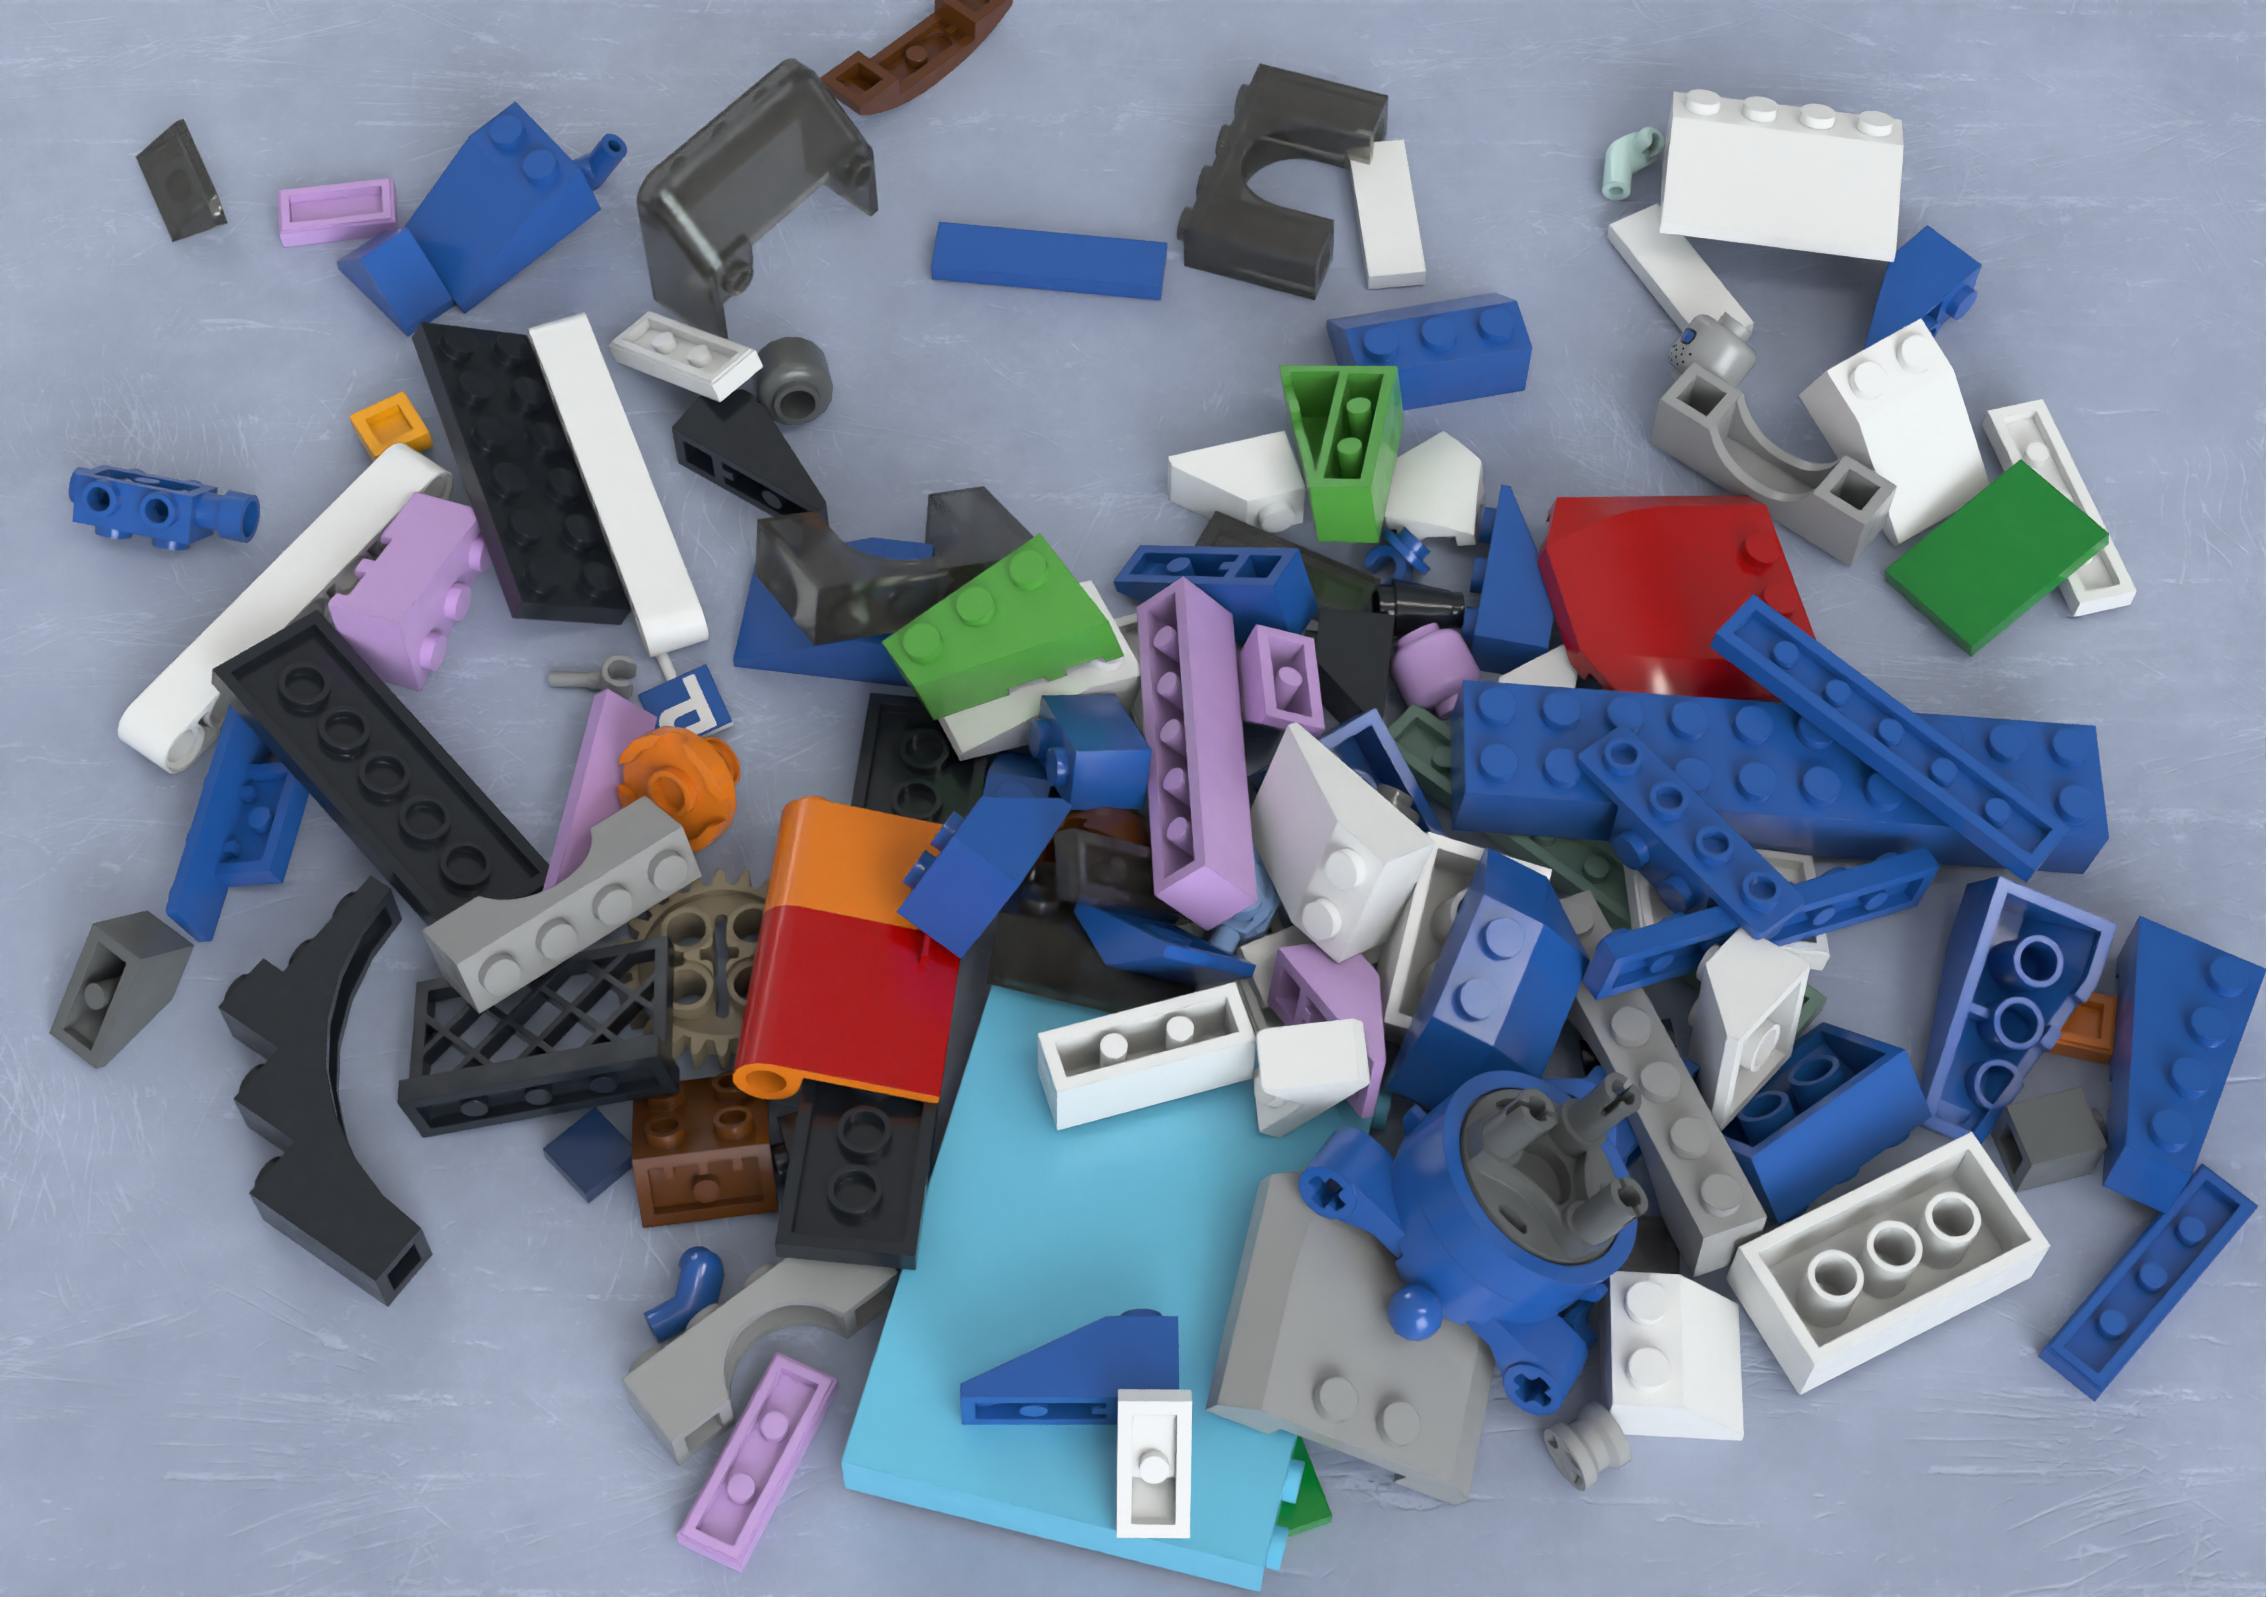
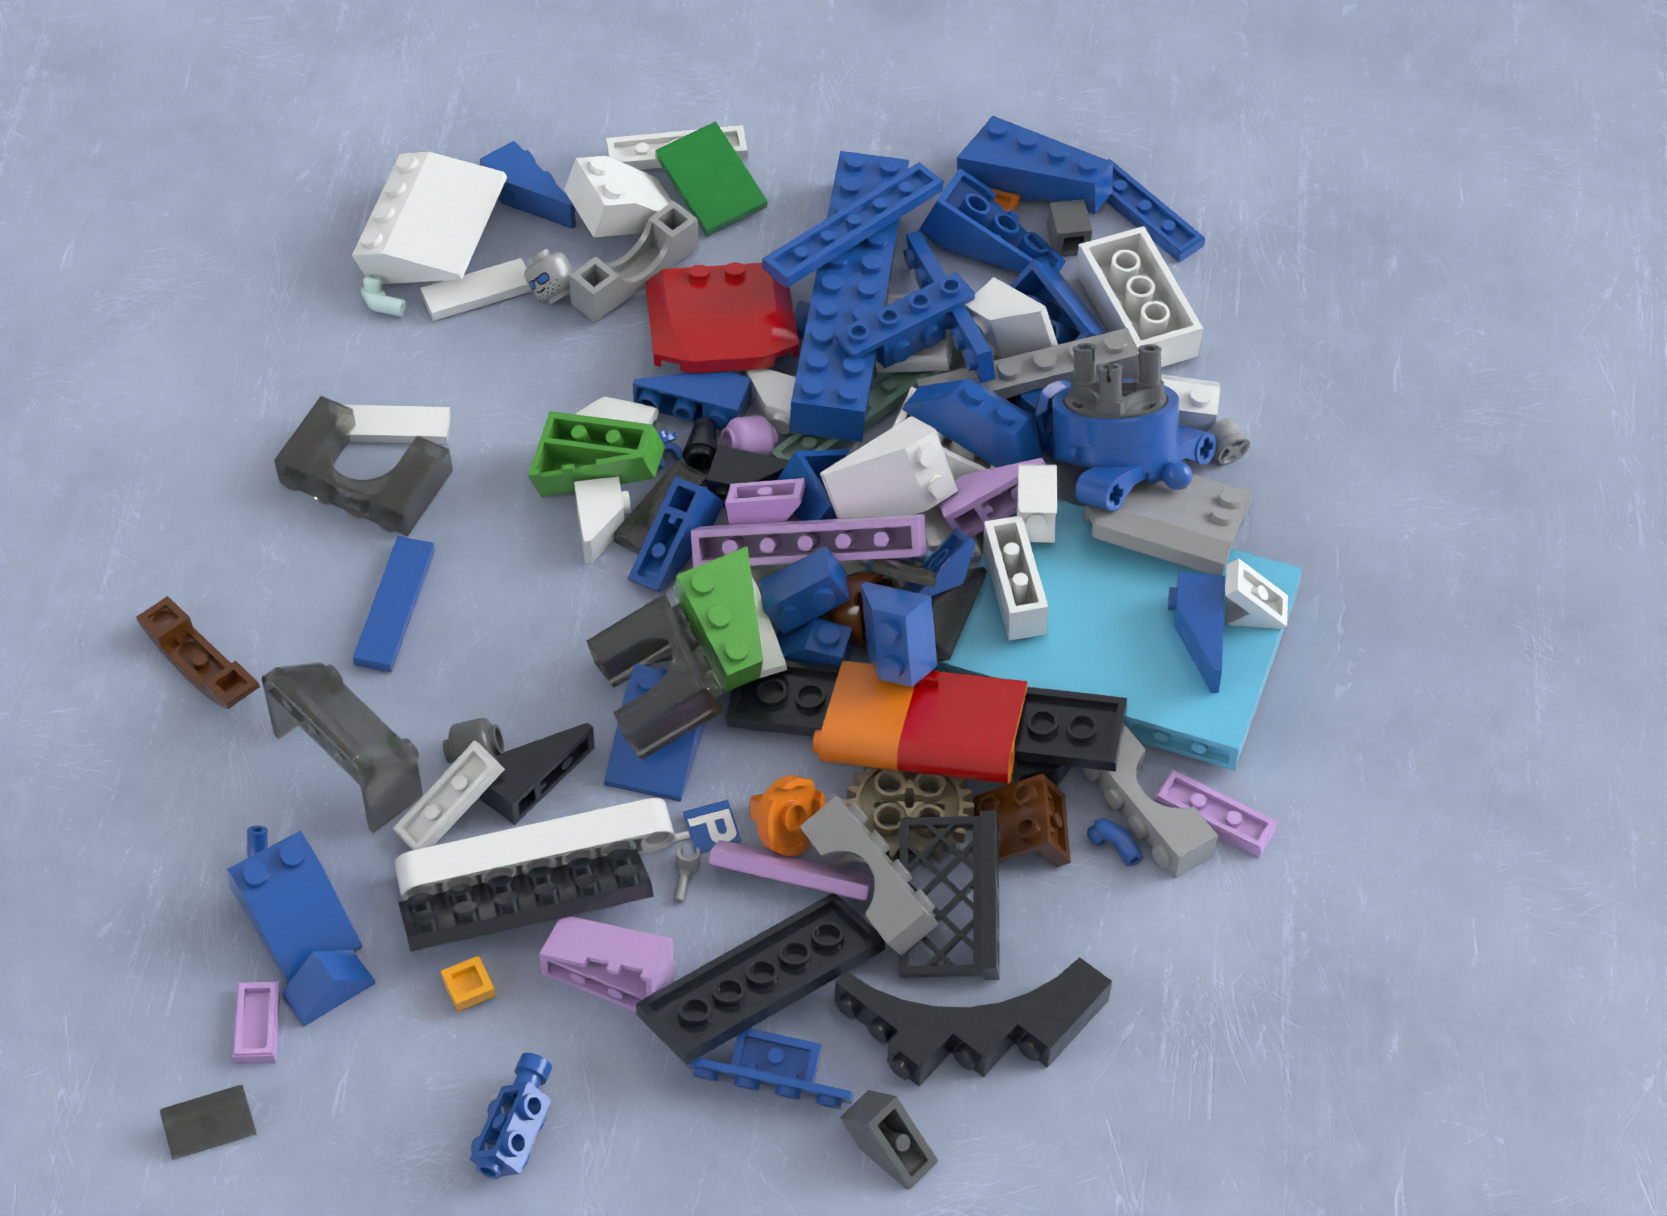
camera: 85 degrees left, 5 degrees down
(181, 707) = (606, 1045): white beam -> none
(590, 1154) = (1022, 886): dark blue tile -> none
(1441, 348) = (506, 411): blue slope -> none

